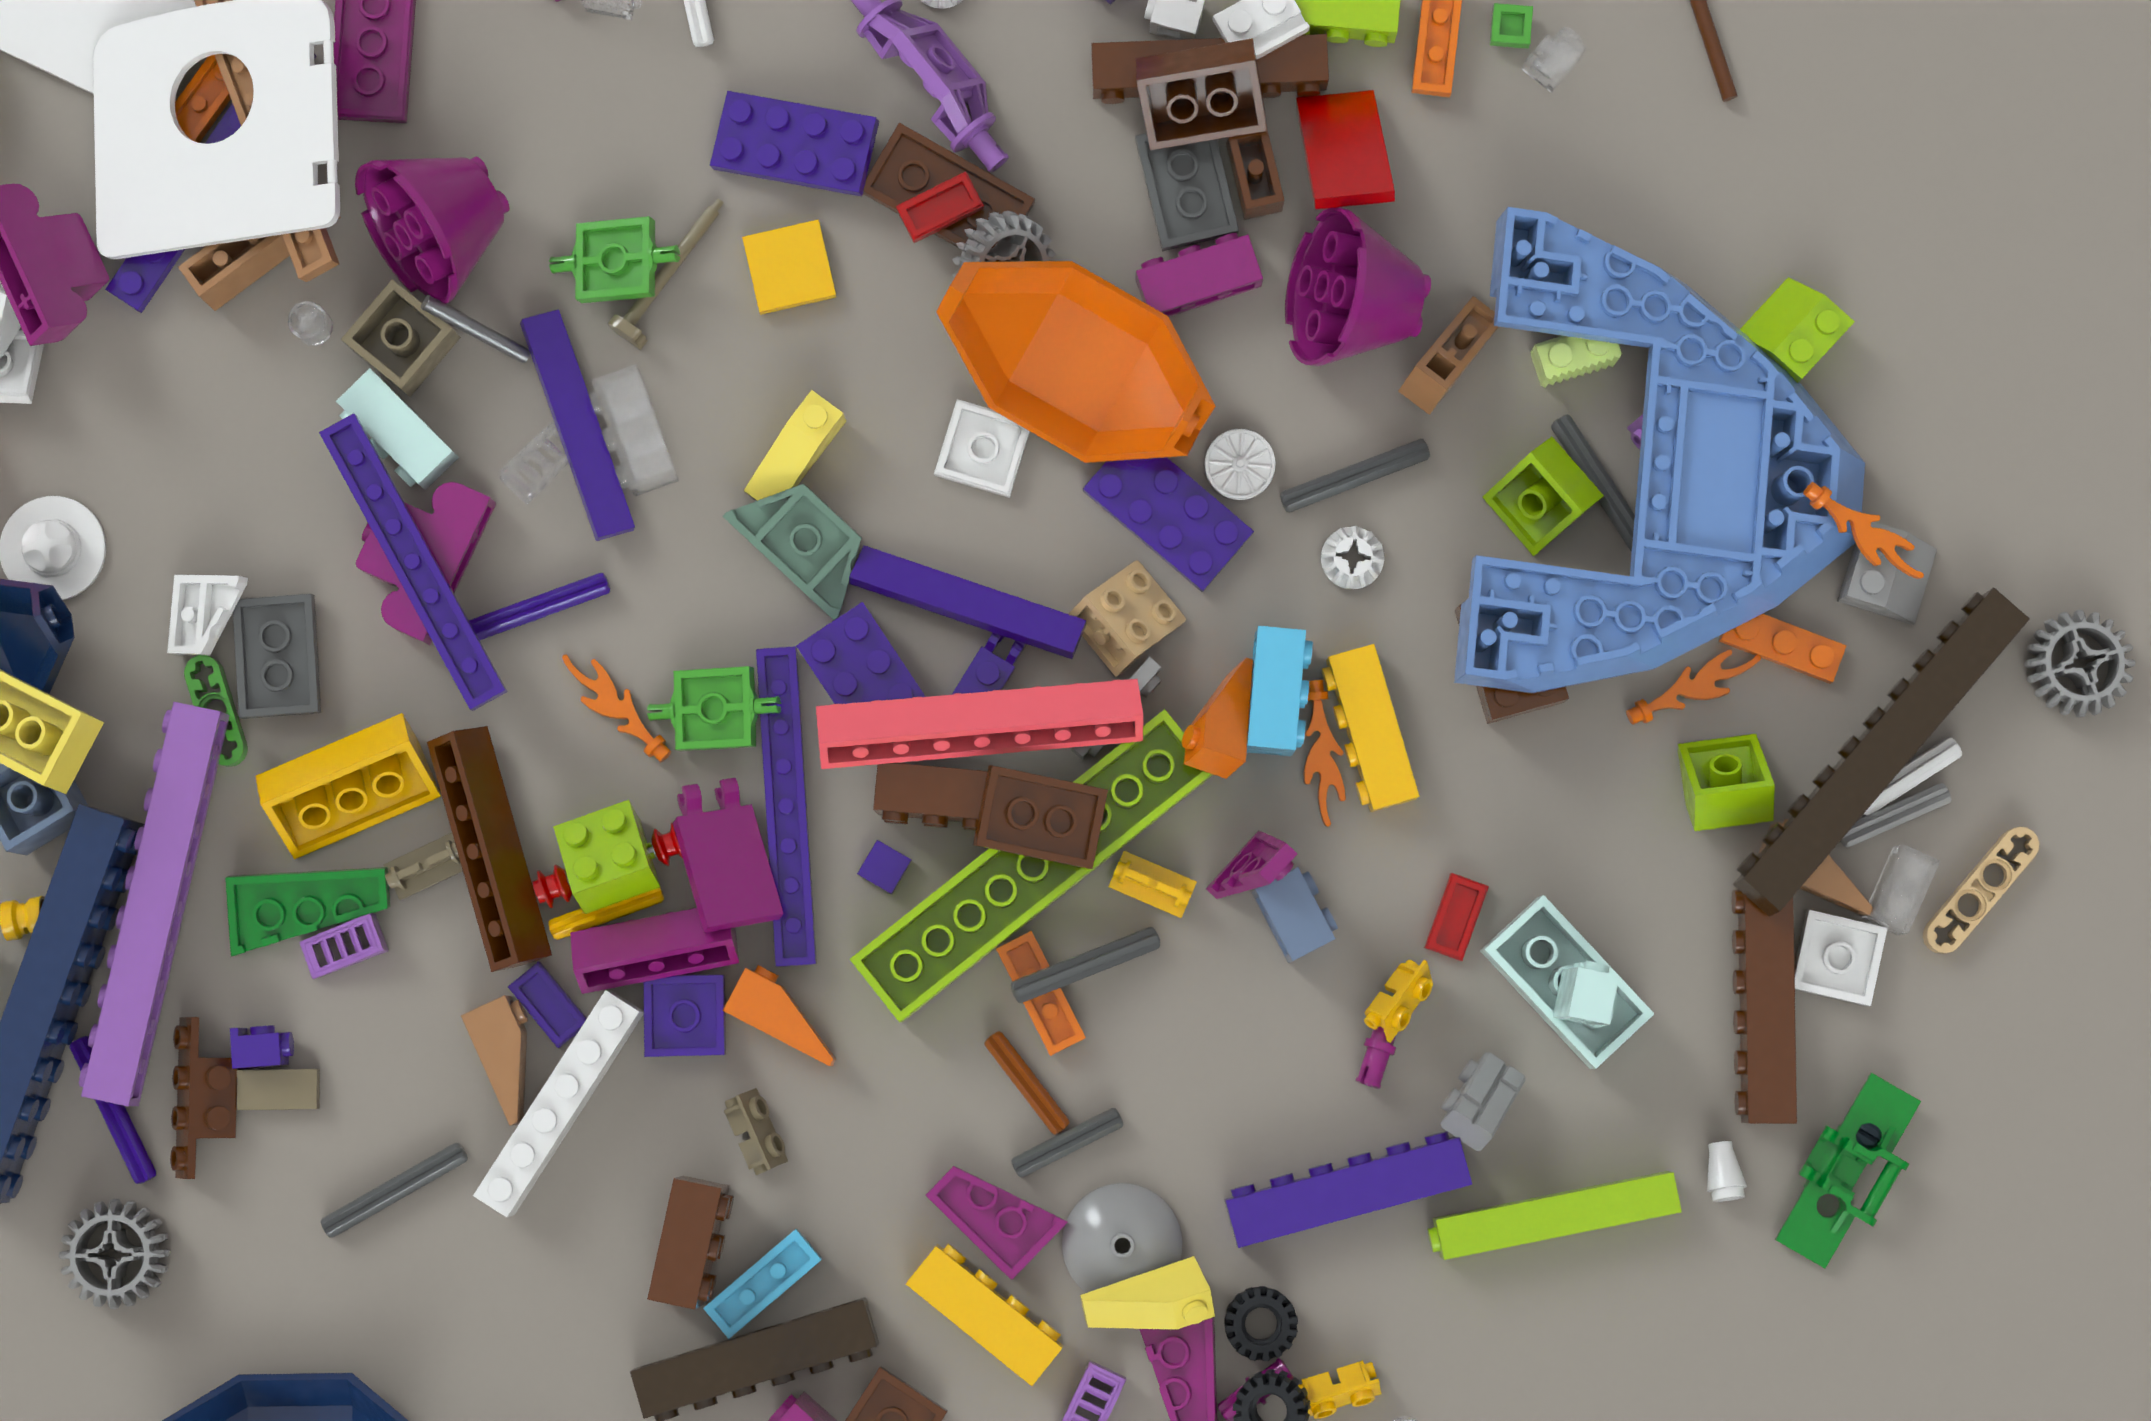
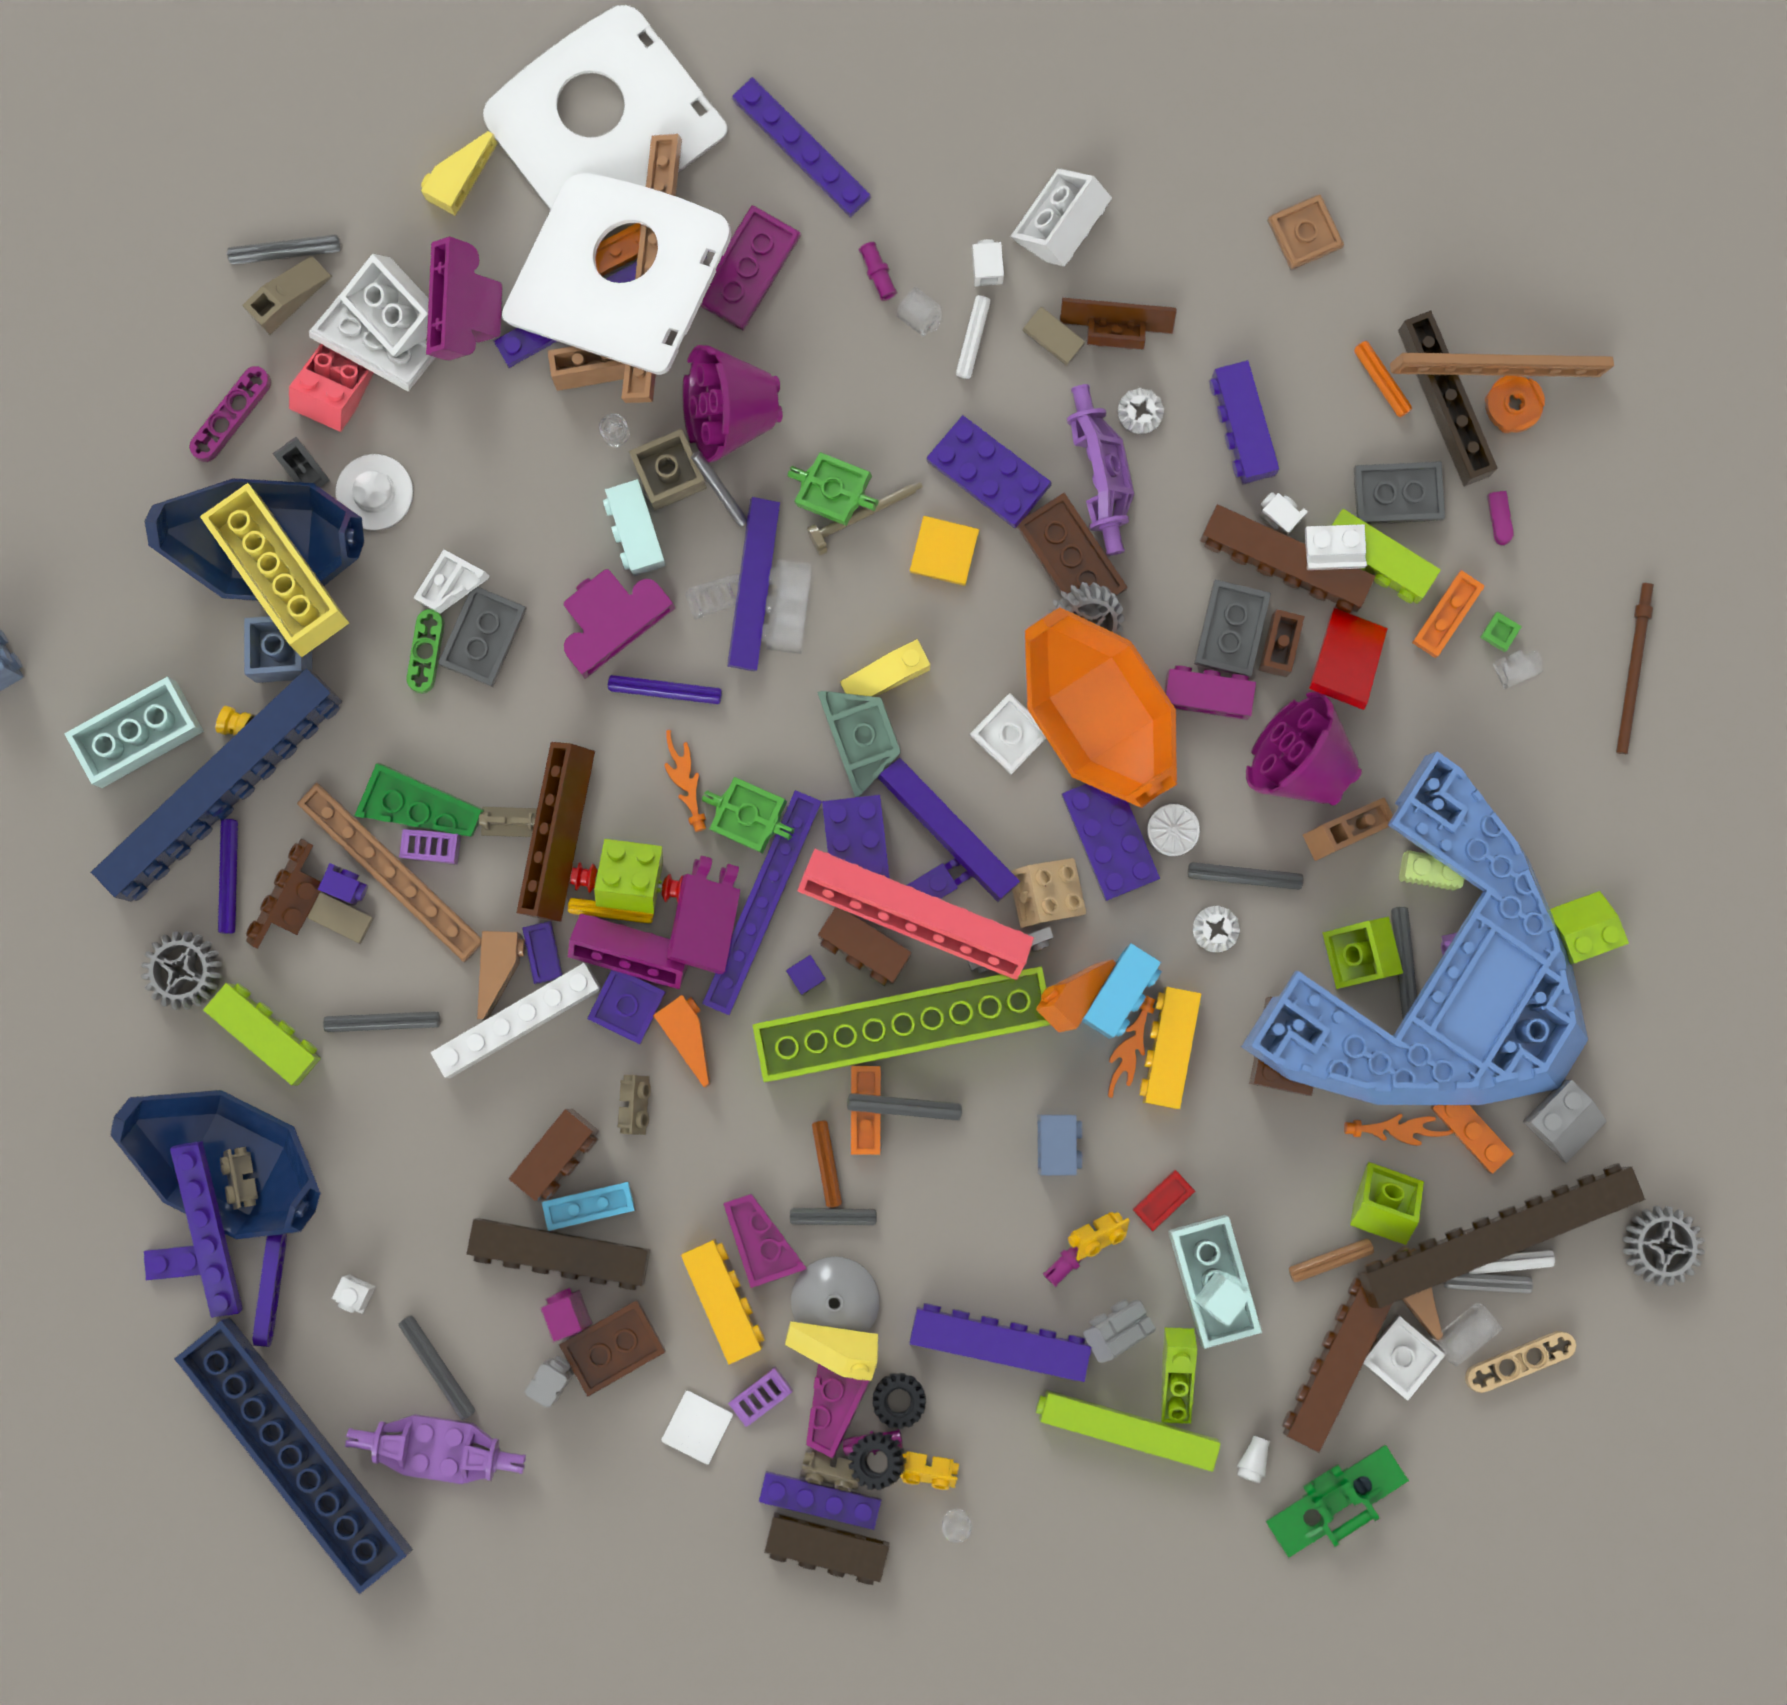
camera: 25 degrees right, 0 degrees up
(154, 904) = (321, 758): medium lavender brick -> none
(254, 1280) = (262, 1033): none -> lime brick
(318, 1004) = (390, 872): none -> medium nougat tile
(347, 786) = (485, 743): yellow slope -> none
(413, 562) = (601, 620): dark purple plate -> none
(940, 207) = (1062, 561): red tile -> none
(1040, 817) = (924, 996): reddish brown plate -> none
(1152, 884) = (975, 1076): yellow hinge -> none
(1201, 94) = (1272, 574): reddish brown brick -> none
(1254, 866) = (1047, 1099): magenta wing -> none
(1581, 1117) = (1178, 1375): none -> lime slope
(1694, 885) = (1331, 1260): none -> medium nougat axle
(1866, 537) = (1563, 1090): orange piece -> none

